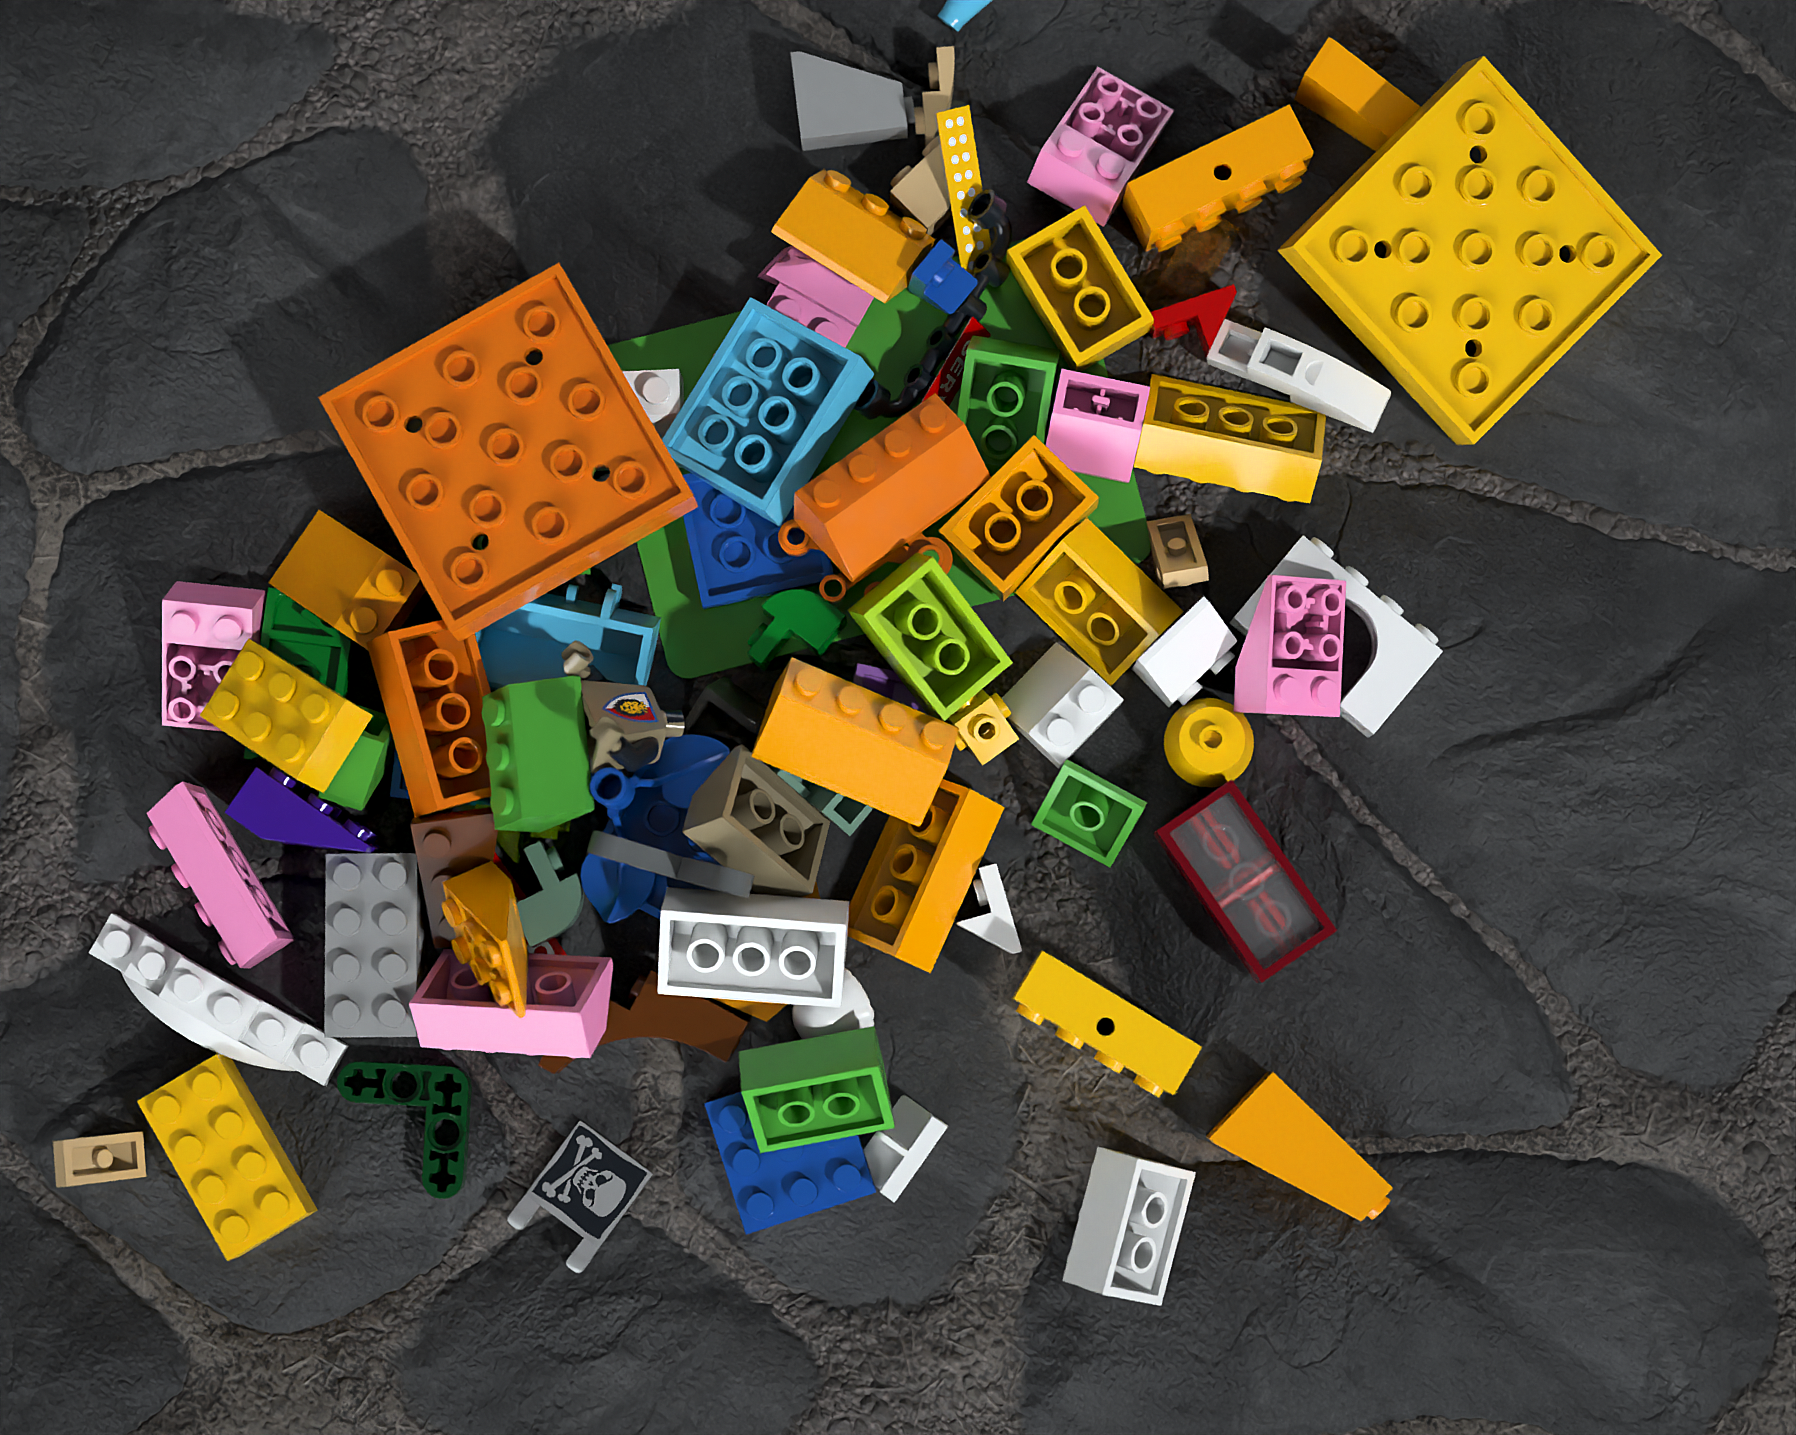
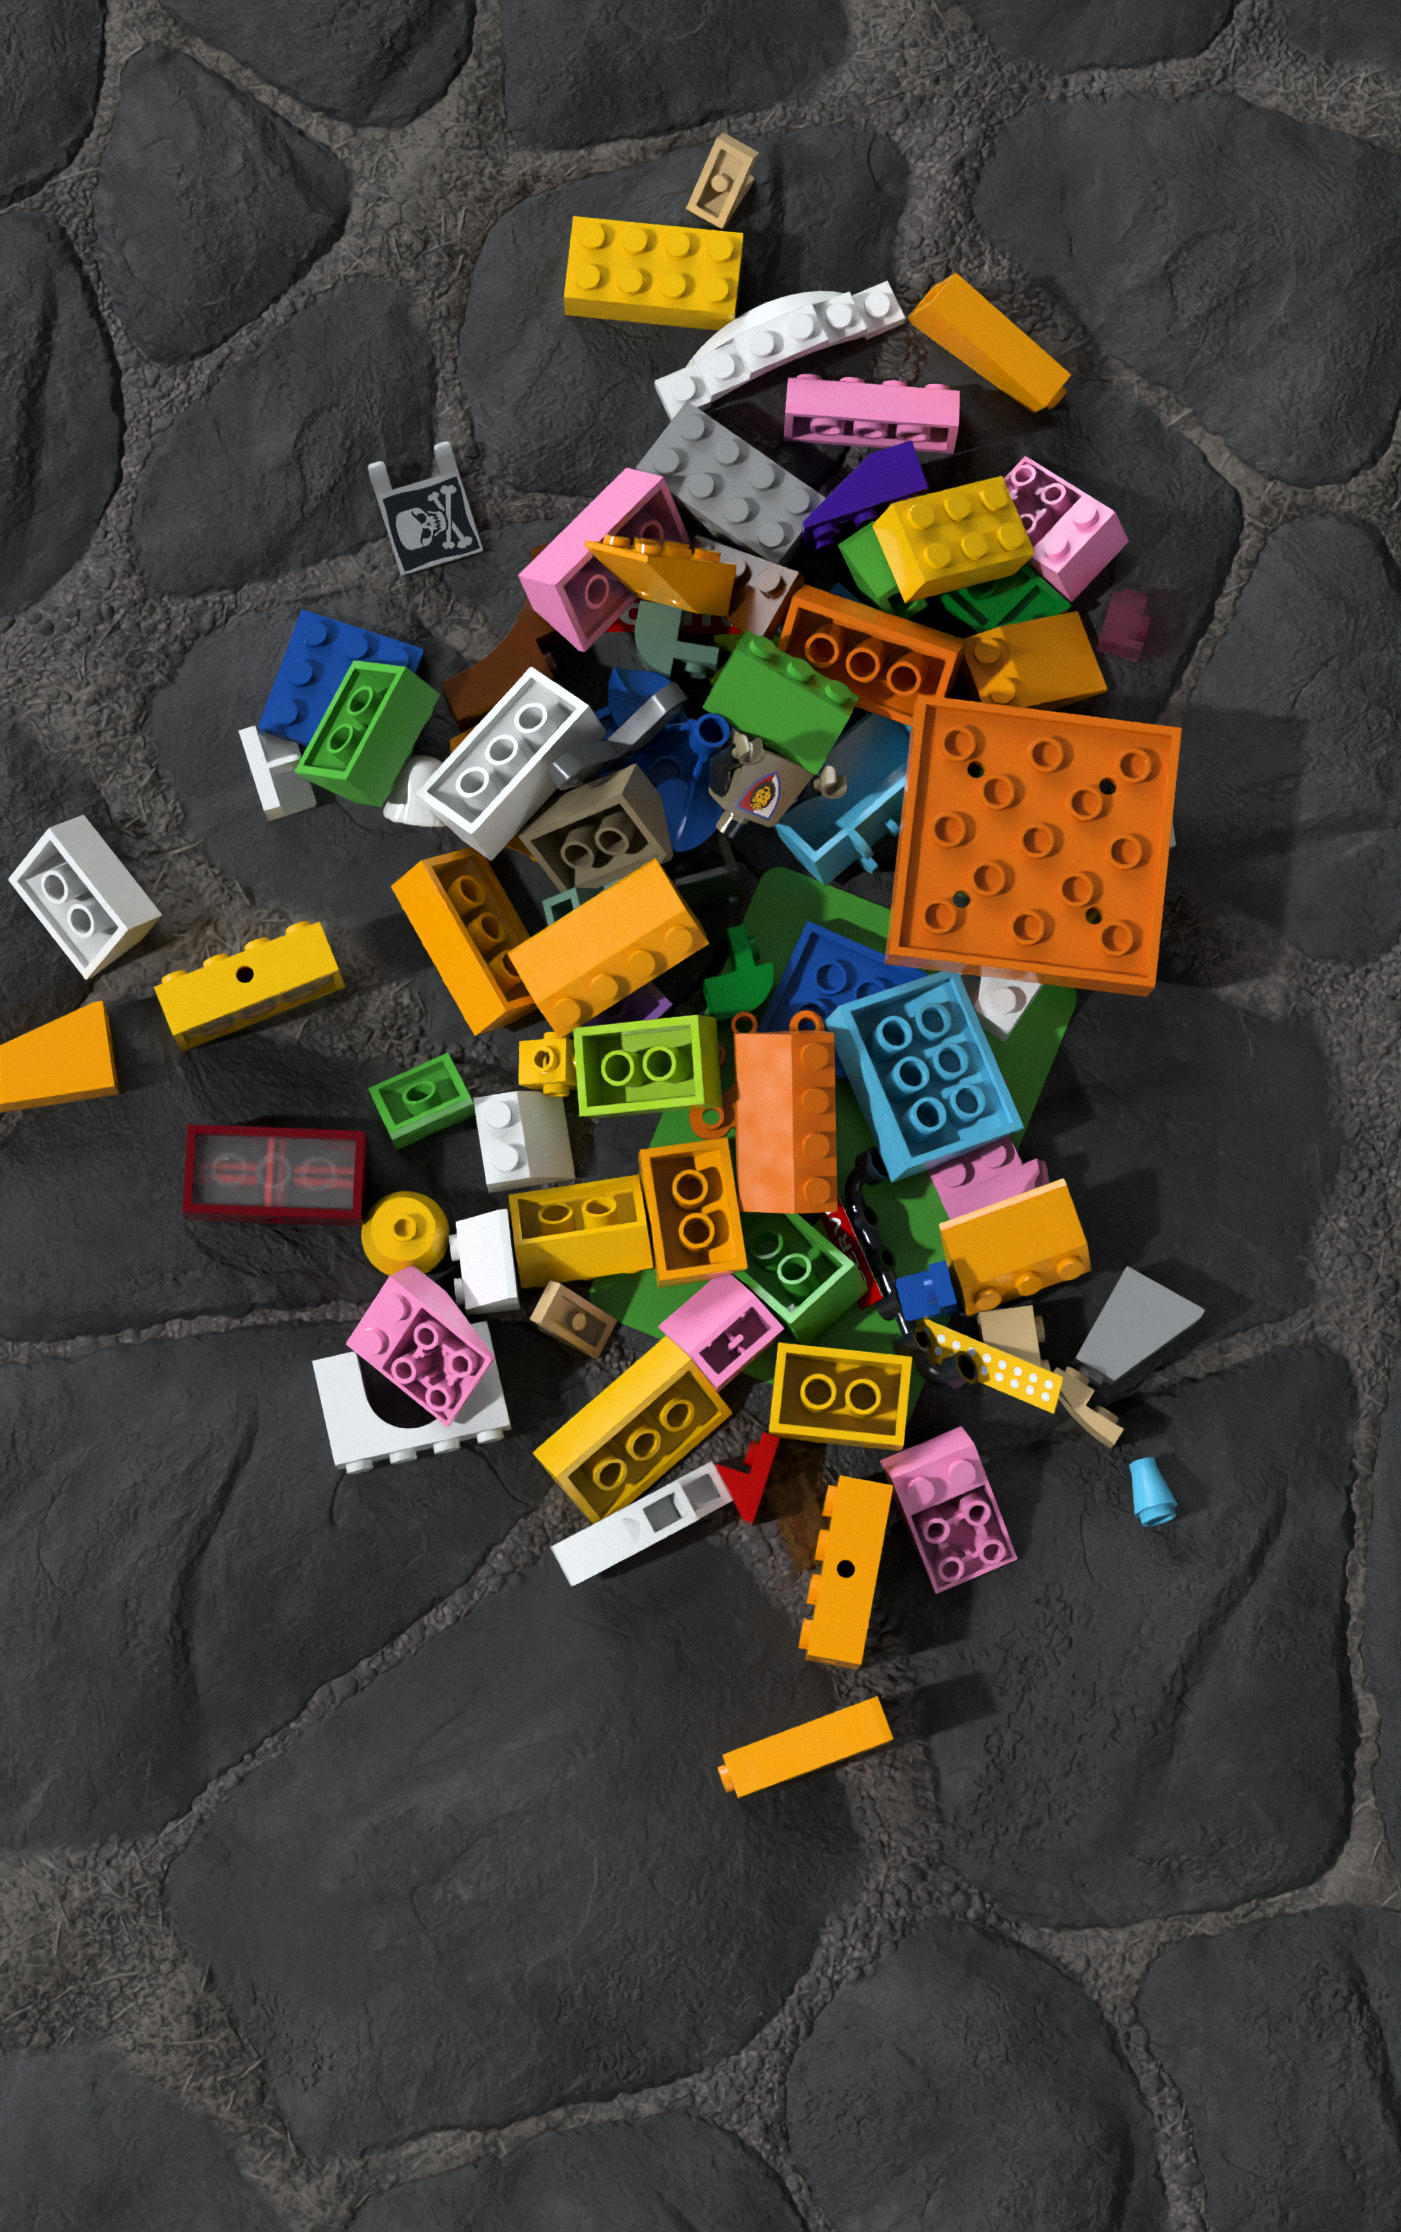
camera: 120 degrees right, 5 degrees down
(84, 823) = (989, 344): none -> light orange slope
(253, 532) = (1124, 625): none -> clear pink brick
(425, 1095) = (586, 452): dark green beam -> none
(997, 925) = (388, 966): white slope -> none
(1470, 252) = (635, 1728): yellow container -> none

